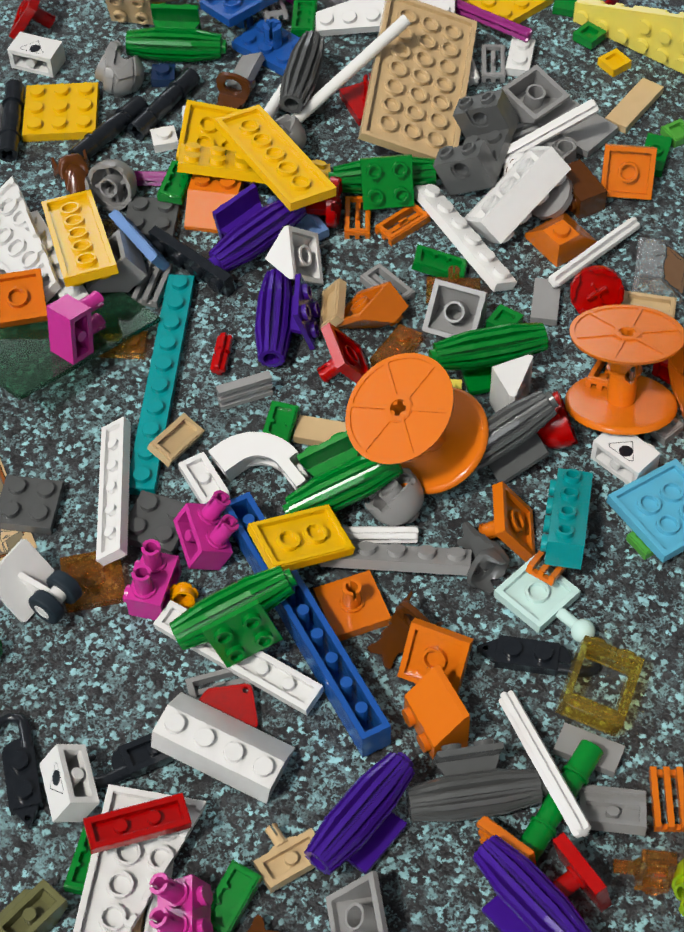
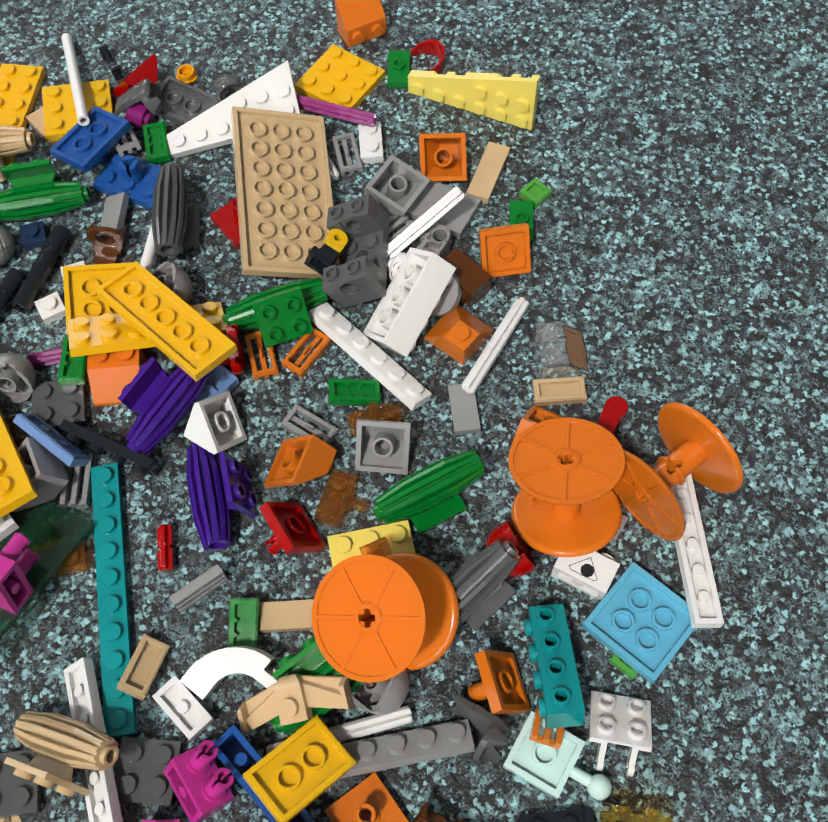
camera: 15 degrees left, 10 degrees up
(78, 472) = (60, 747): none -> tan plate
(309, 484) = (293, 698): none -> tan plate
(333, 303) = (263, 467): tan tile -> none
(353, 67) = (217, 199): white piece -> none
(451, 135) = (328, 253): none -> black leg
(504, 315) = (431, 442): green plate -> none
(510, 381) = (457, 526): white slope -> none
(589, 35) = (428, 106): green plate -> none
(590, 78) = (443, 156): none -> orange slope
(596, 288) = (511, 392): red tile -> none
(614, 62) = (459, 125): yellow tile -> none
(621, 580) = (620, 722): none -> white plate

